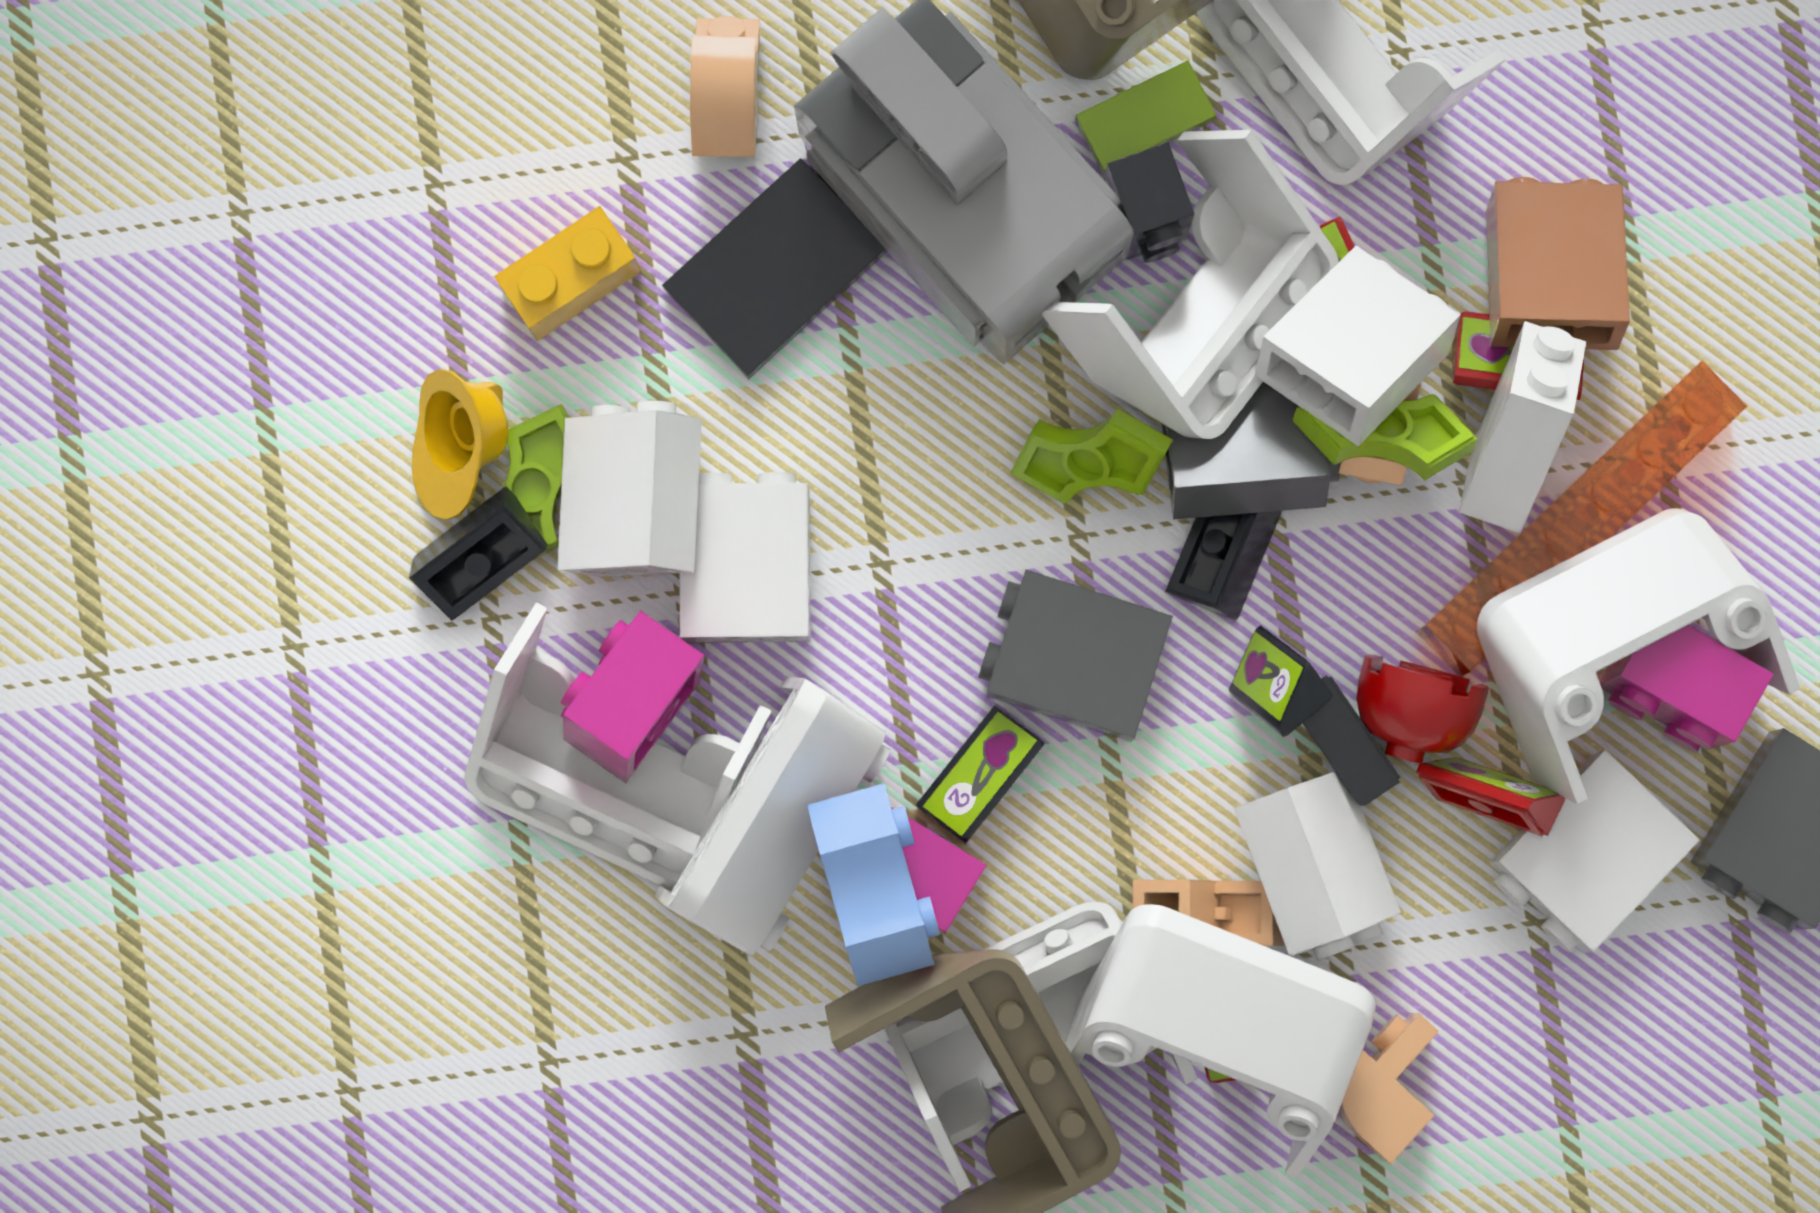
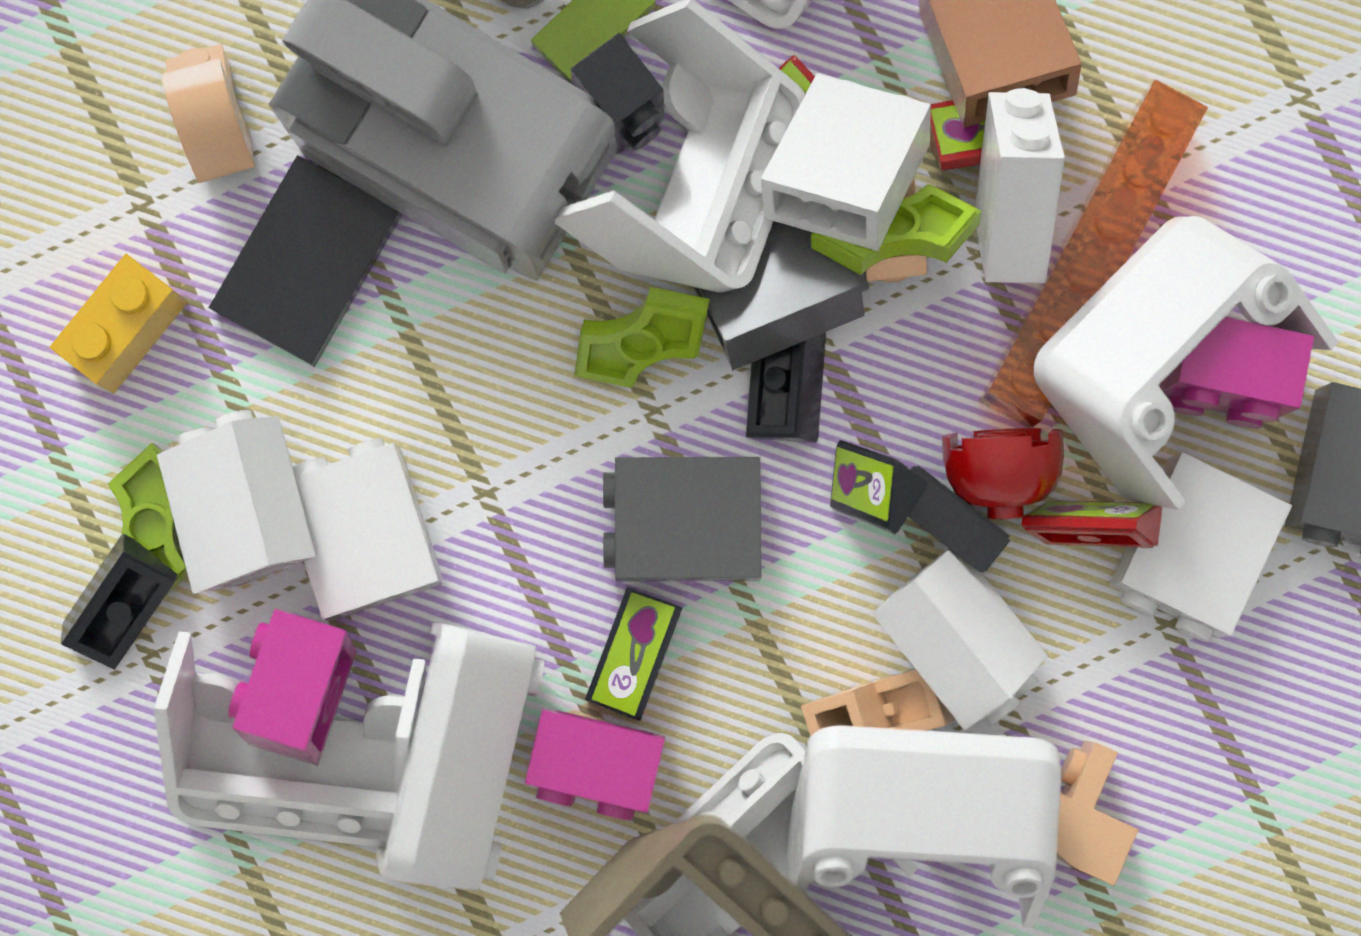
camera: 25 degrees left, 0 degrees up
(455, 436) = (64, 502): yellow piece -> none
(872, 885) = (564, 792): light blue brick -> none

